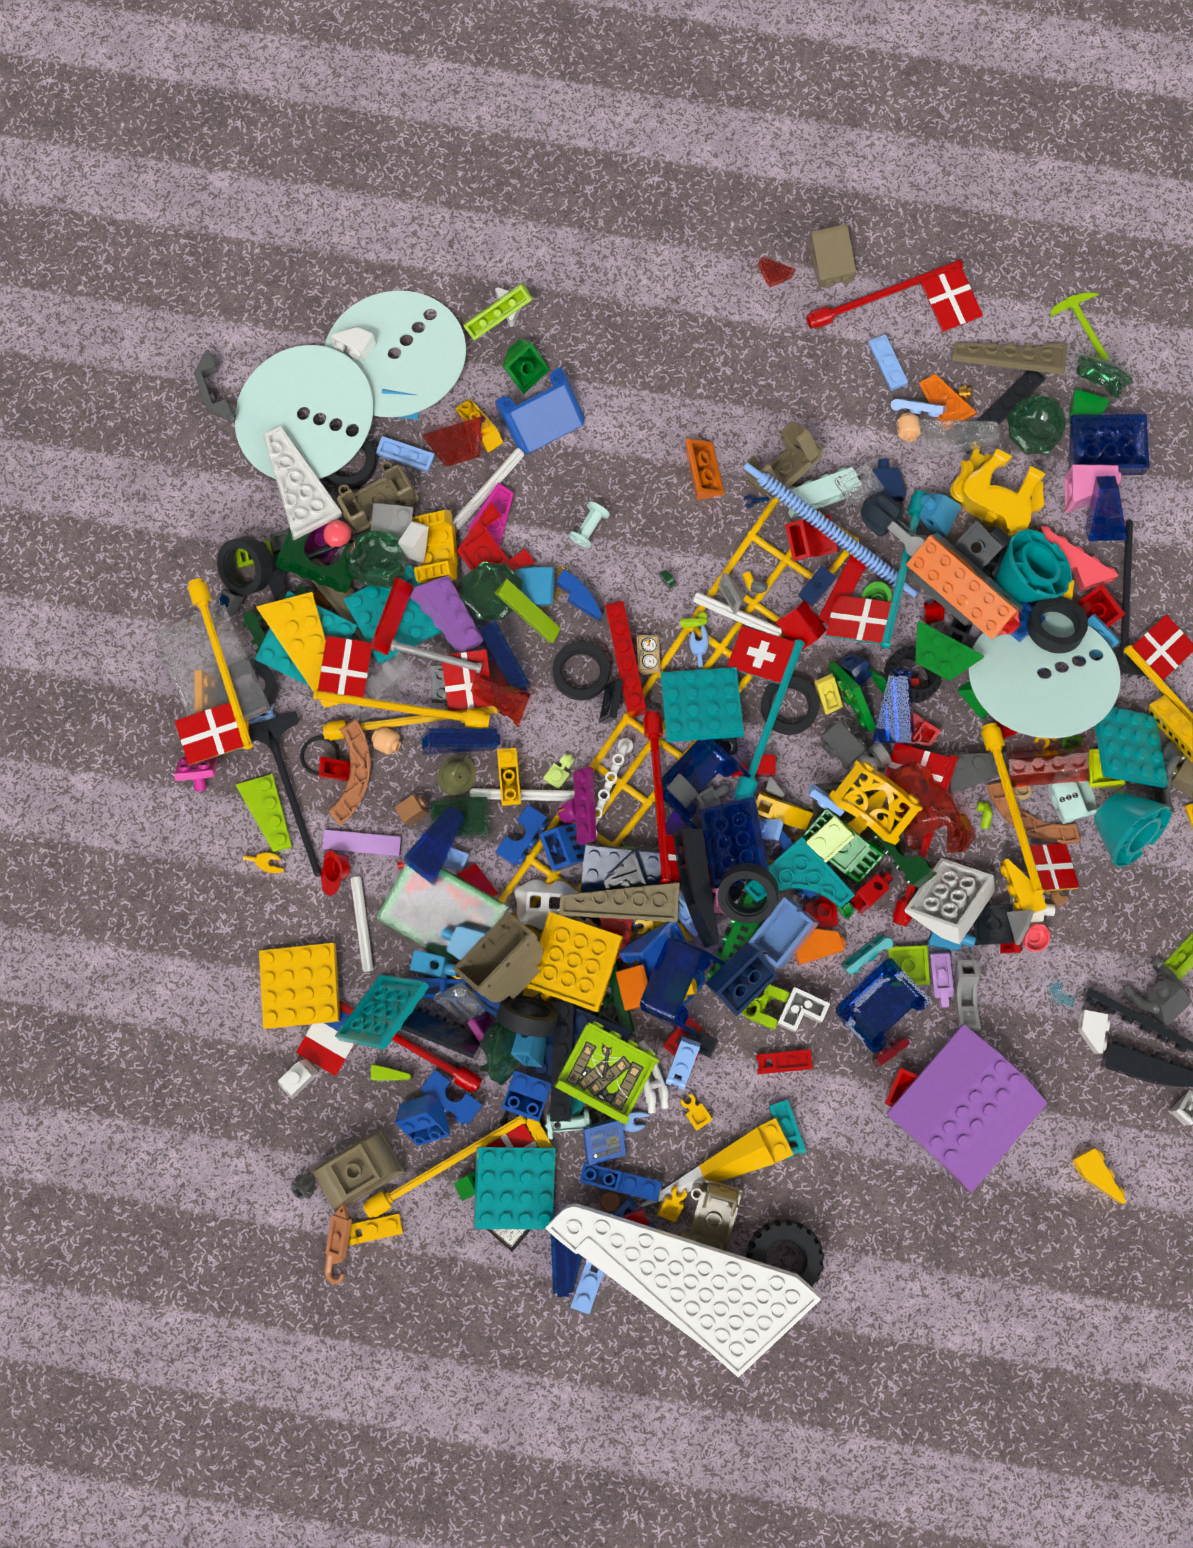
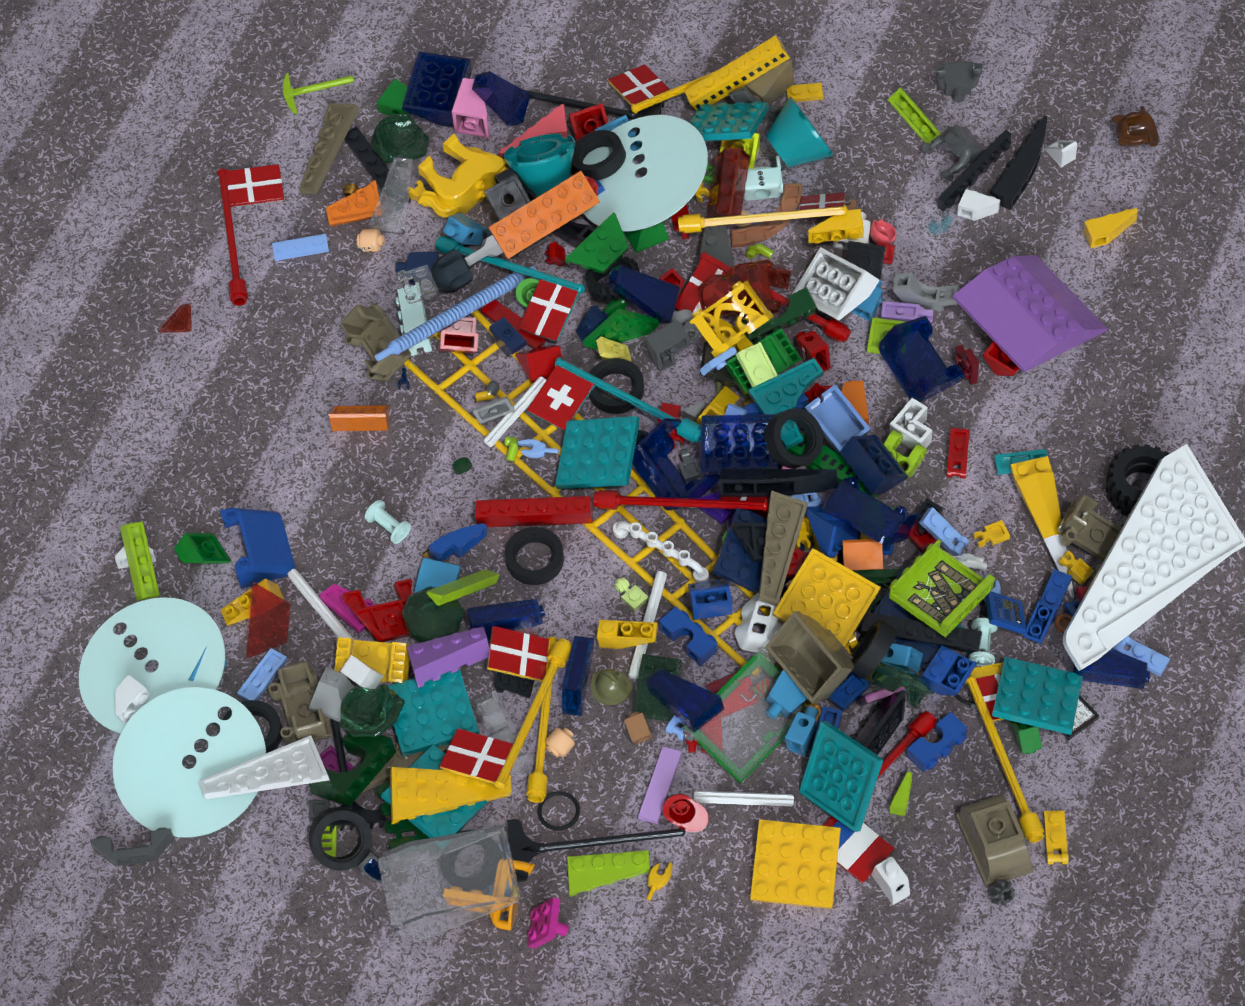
camera: 75 degrees left, 20 degrees down
(221, 727) = (512, 871): flag -> none
(334, 769) = (577, 796): red slope -> none
(337, 533) = (331, 747): coral hair -> none
(337, 1242) = (1065, 869): nougat plate -> none
(358, 775) = (587, 773): nougat tile -> none
(391, 616) = (435, 705): red tile -> none
(423, 1120) = (955, 767): blue slope -> none
(436, 656) = (468, 702): light grey bar -> none
(464, 999) = (845, 706): clear plate -> none
(502, 696) = (544, 623): clear red wing -> none
(581, 807) = (674, 568): magenta plate -> none
(610, 702) = (574, 530): black plate -> none
(648, 654) = (532, 491): slope -> none
(682, 790) = (678, 480): dark grey slope -> none
(832, 256) = (181, 268): dark tan slope -> none
(846, 910) = (828, 377): green tile -> none
(866, 954) = (869, 367): teal plate -> none
(918, 406) = (354, 228): light blue plate -> none
(940, 599) = (547, 240): dark grey tile -> none
(1020, 923) = (871, 231): light grey slope -> none
(1104, 372) = (374, 71): clear green piece -> none

